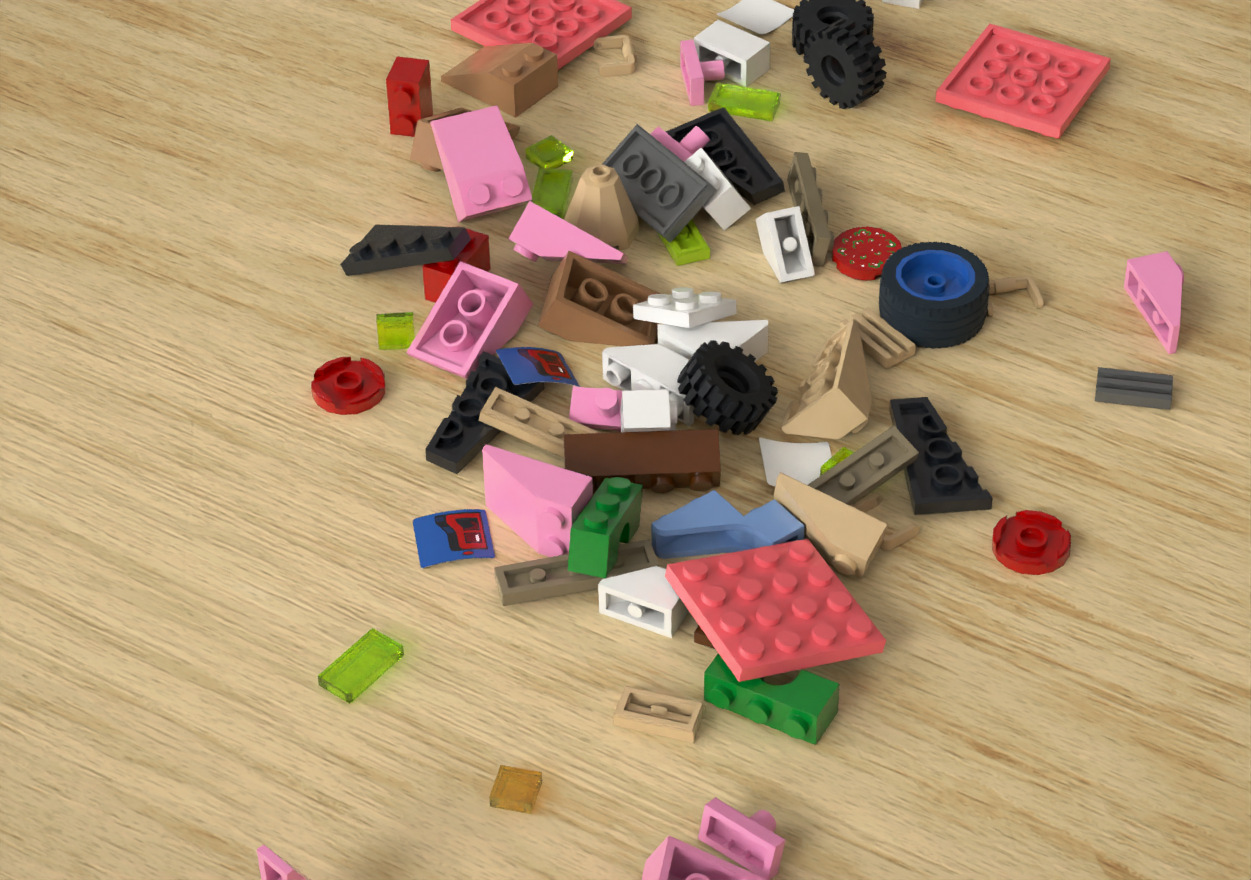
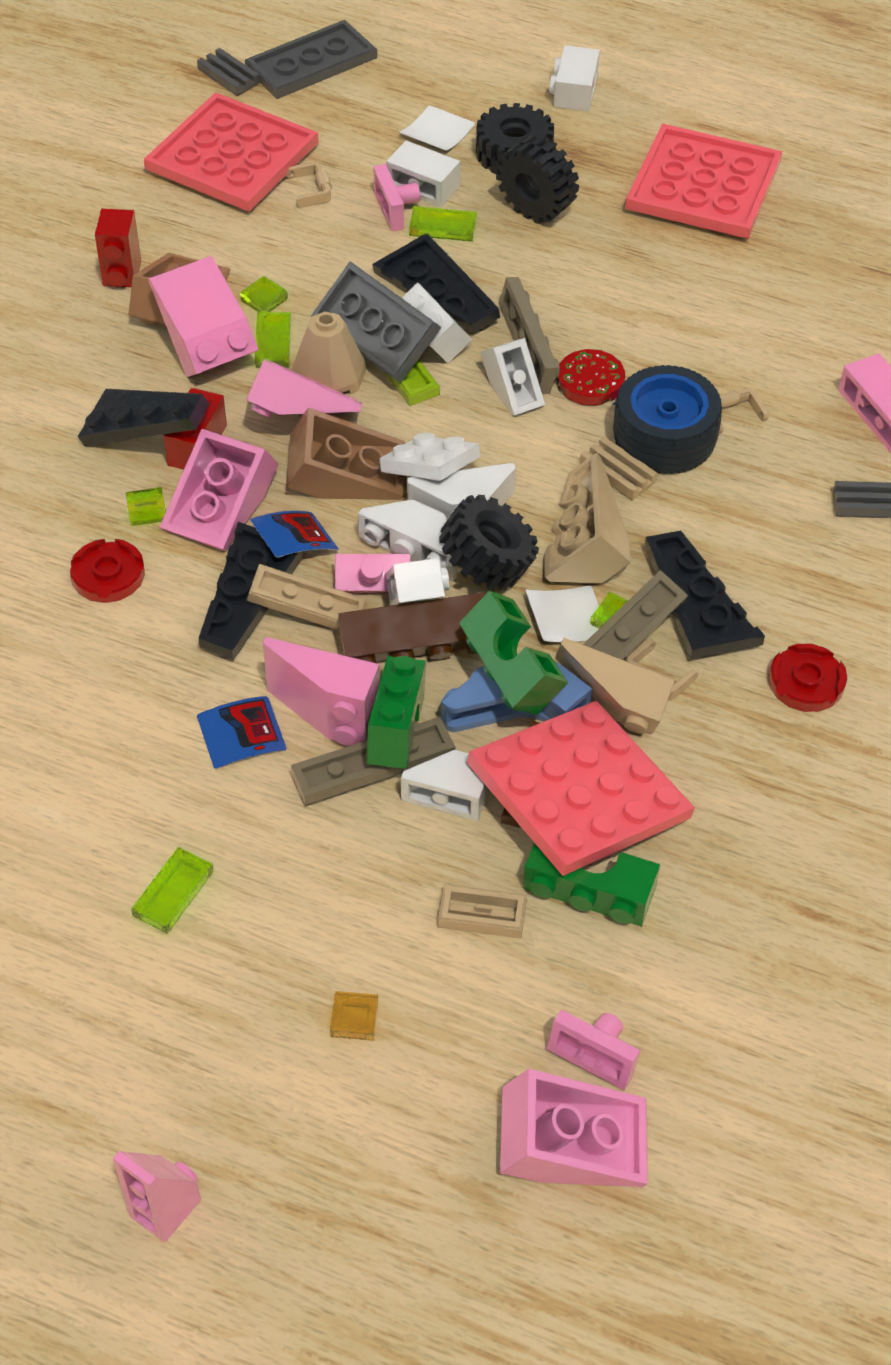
camera: 10 degrees left, 10 degrees up
(506, 76) = (207, 215): medium nougat slope -> none
(687, 147) = (400, 278): bright pink tile -> none
(732, 499) = (494, 633): none -> green arch

